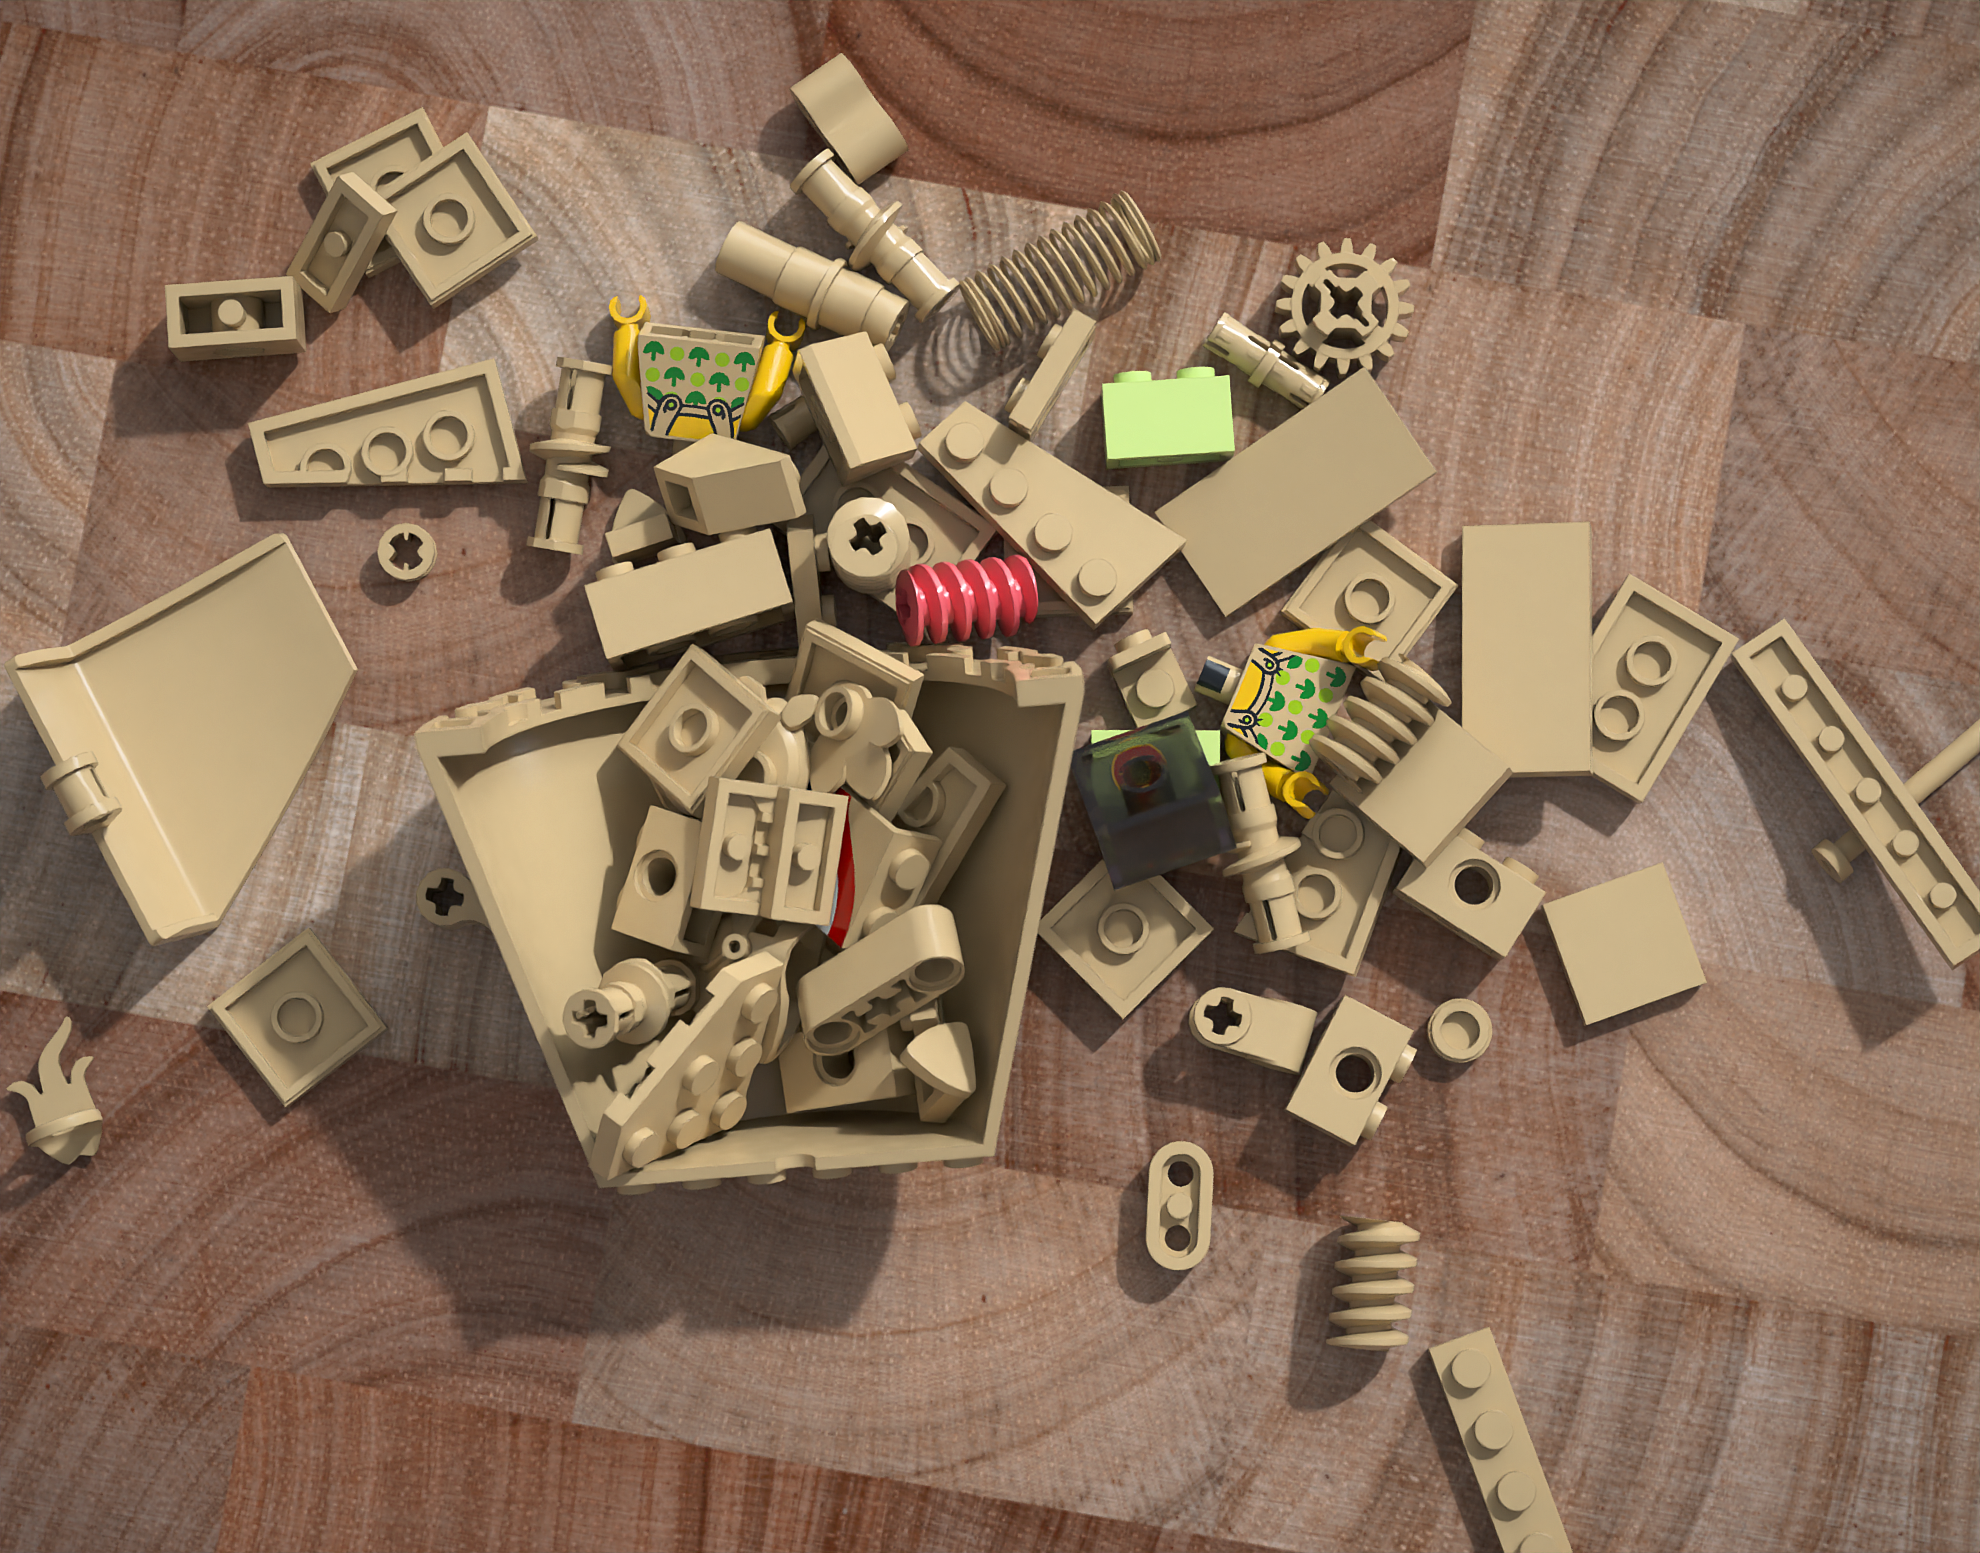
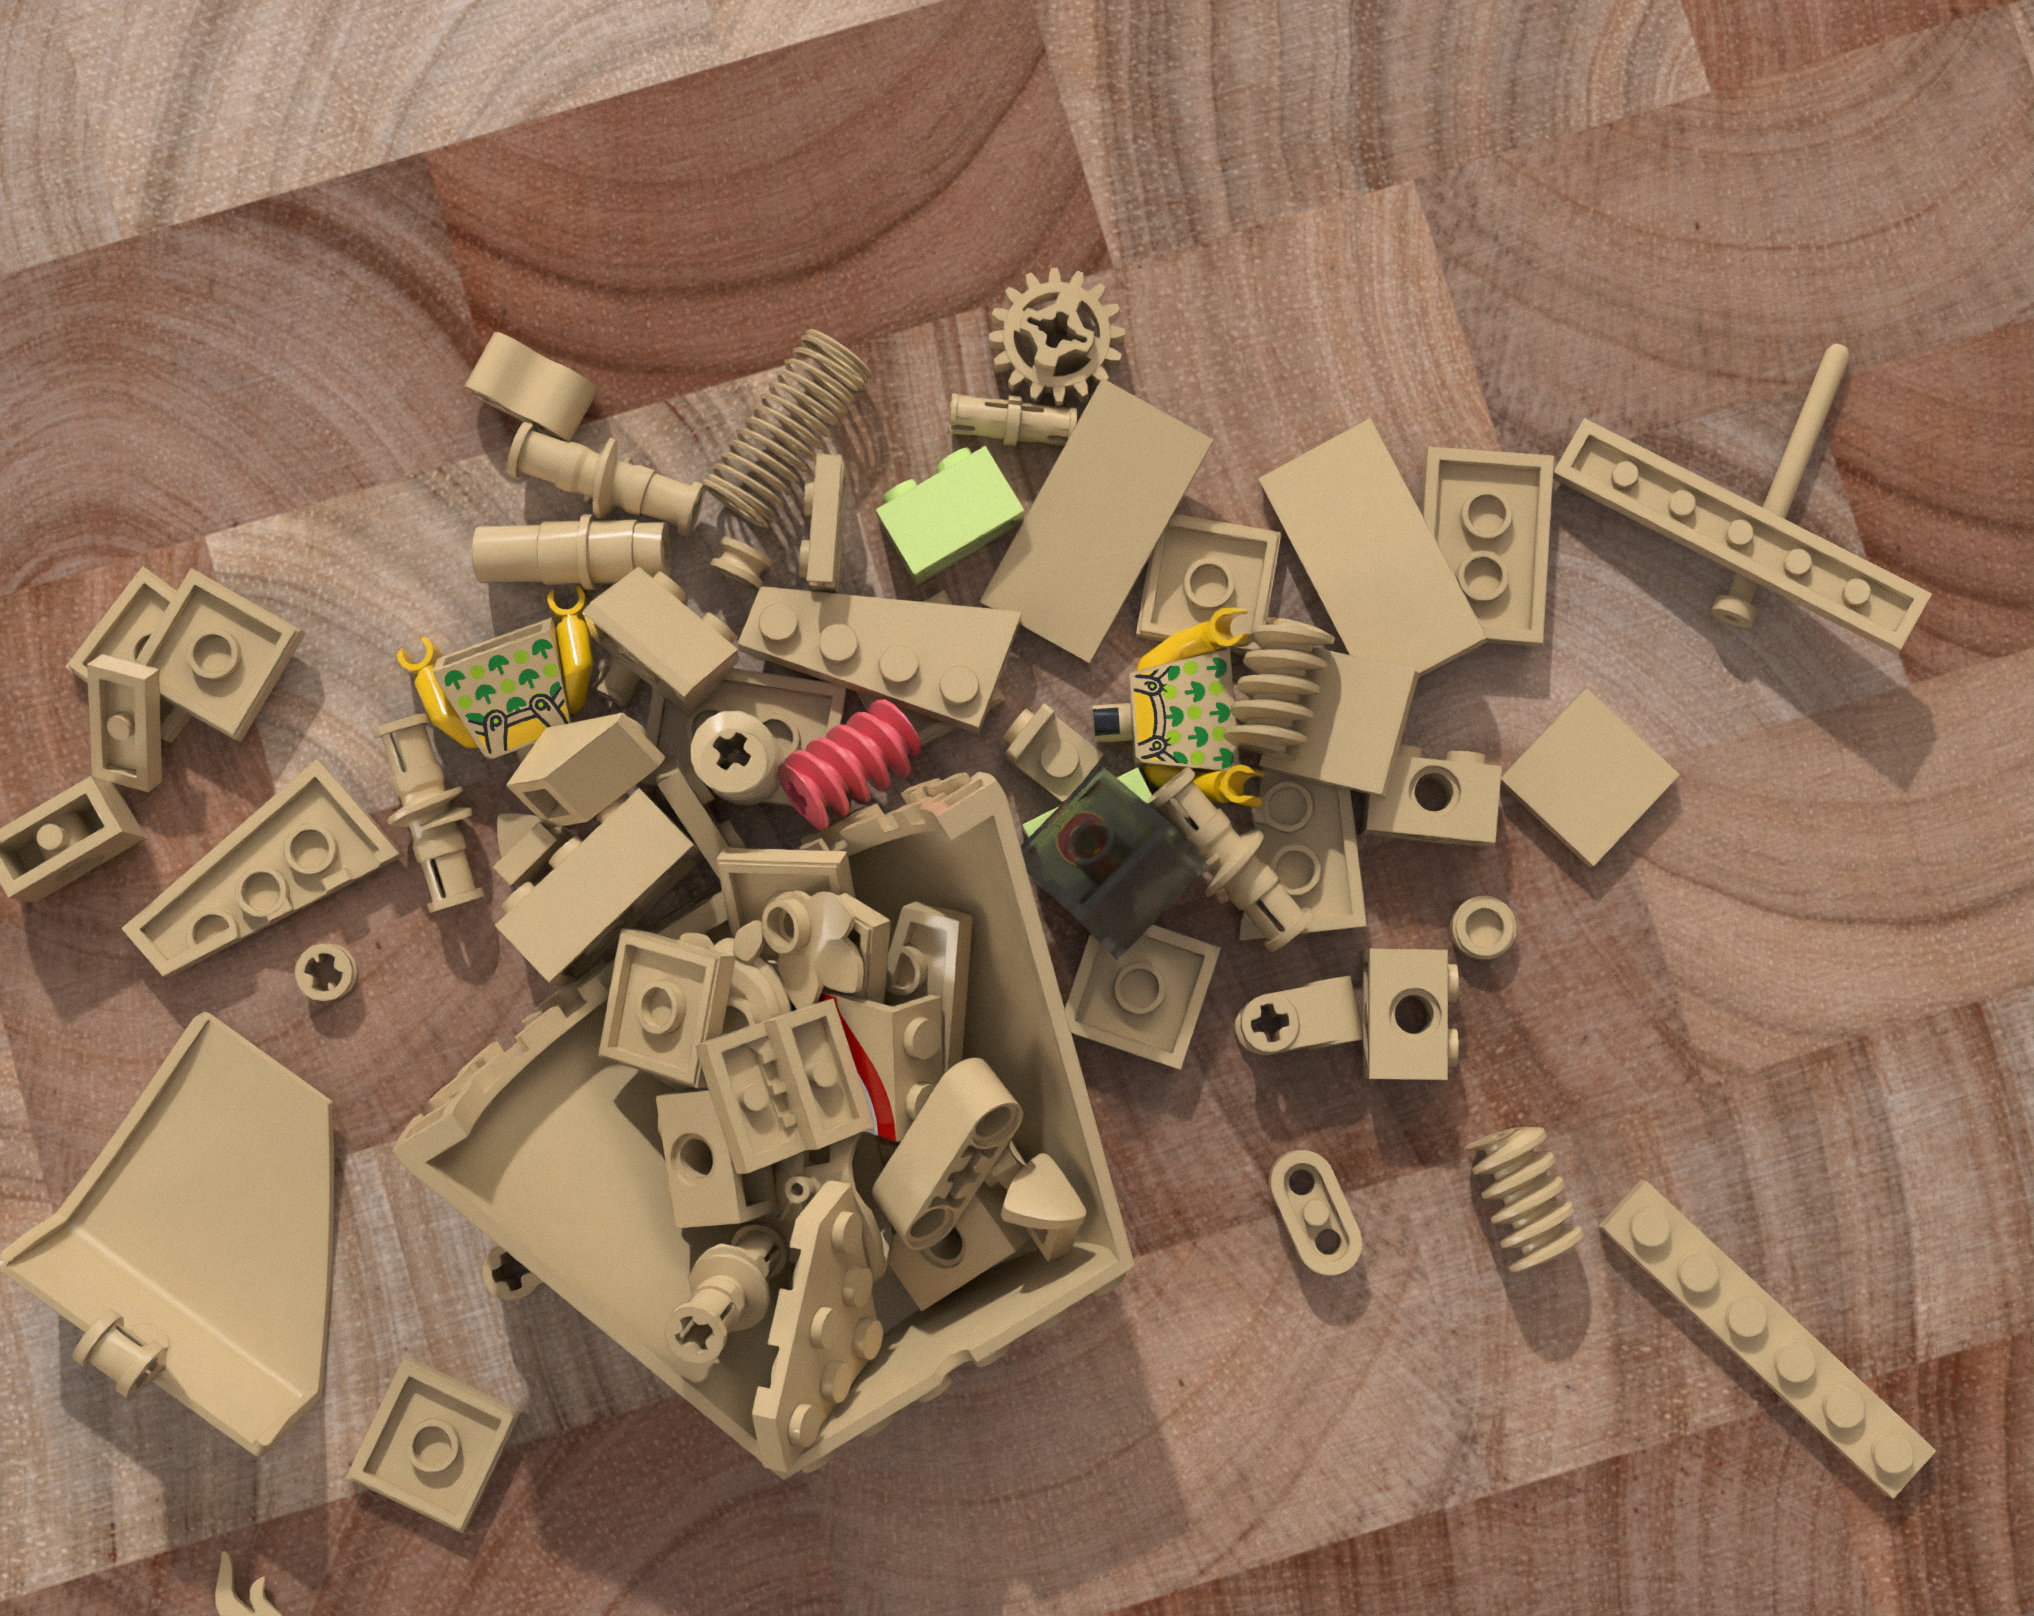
camera: 25 degrees left, 0 degrees up
(958, 371) = (741, 563): none -> tan bush

